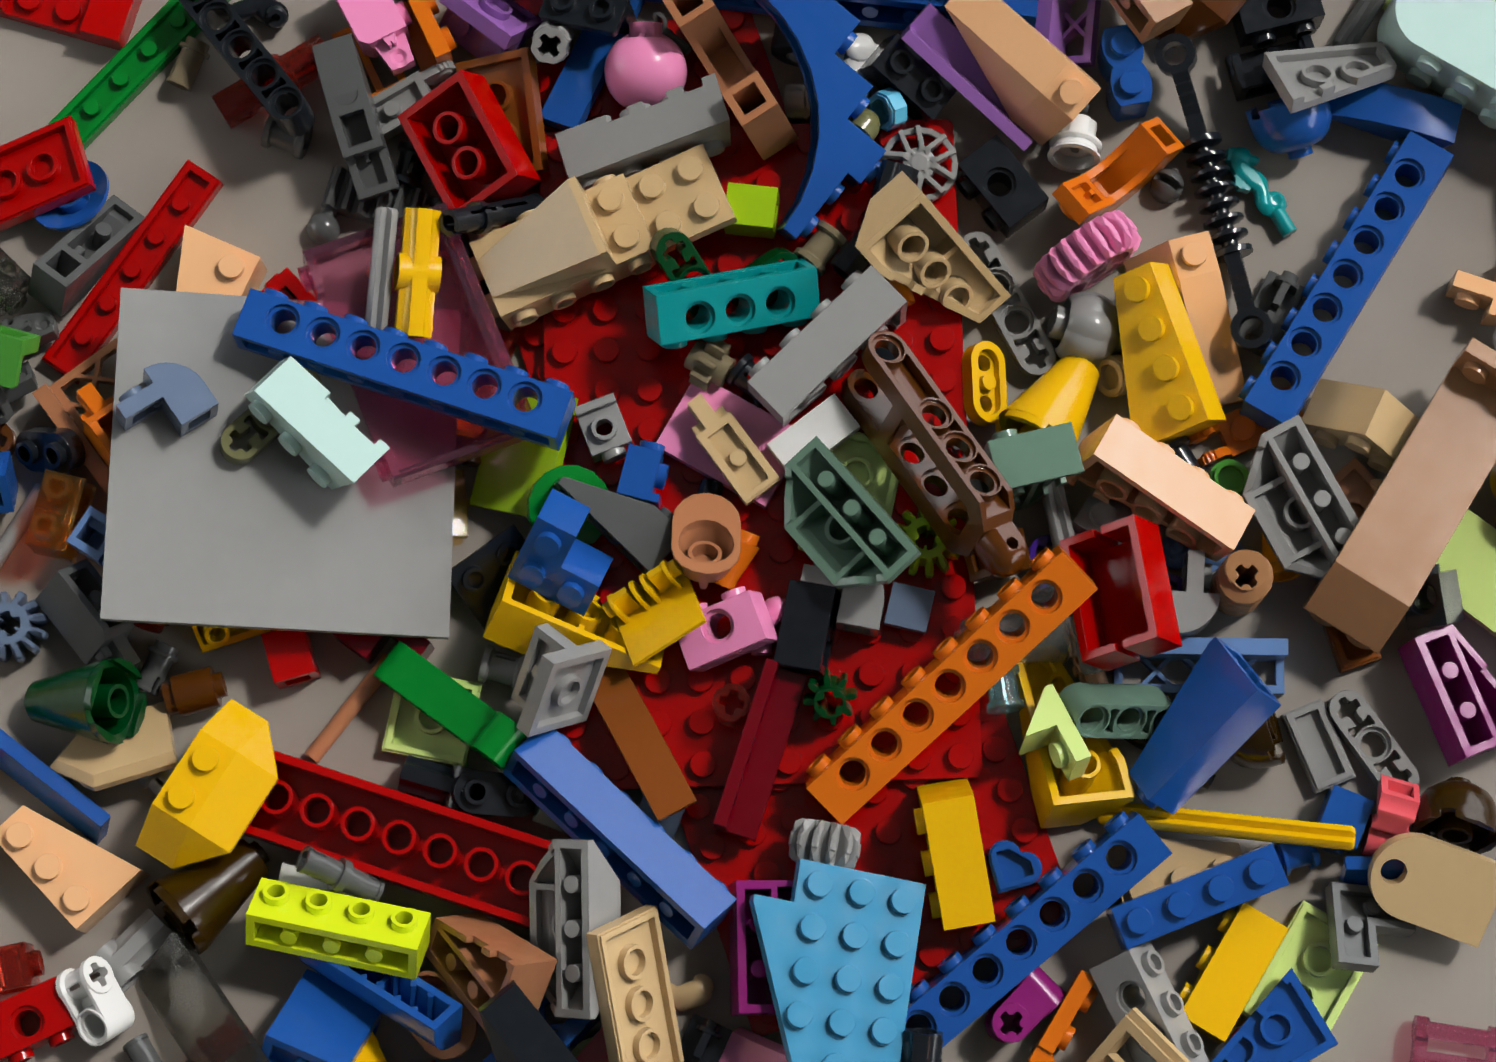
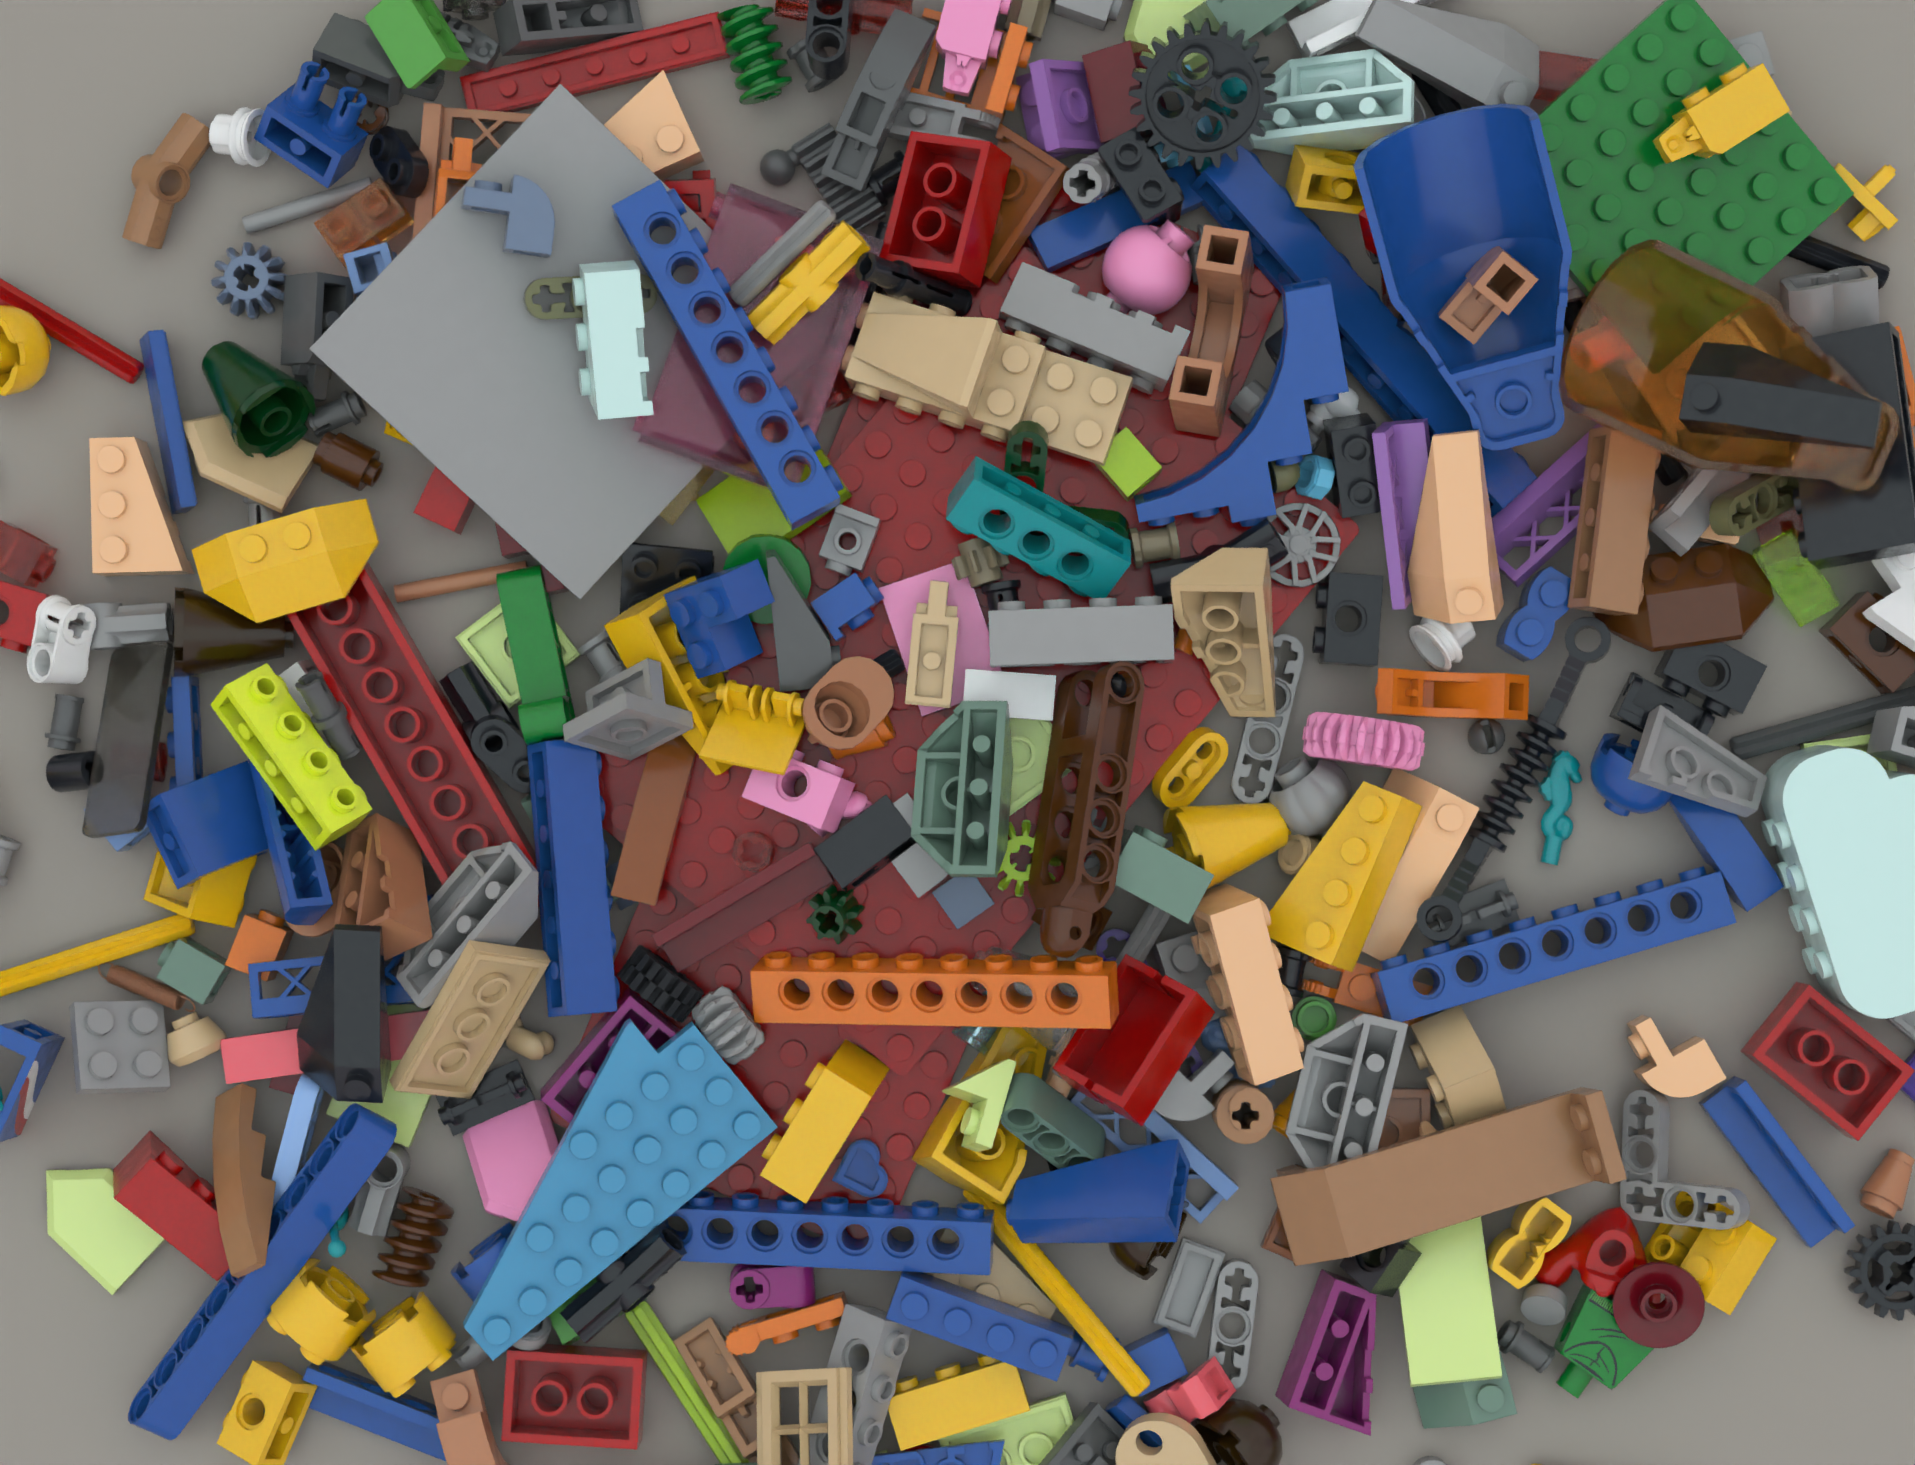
camera: 45 degrees right, 10 degrees up
(238, 164) = (753, 53): none -> green piece
(248, 996) = (186, 739): none -> blue plate
(750, 857) = (660, 983): none -> black tyre

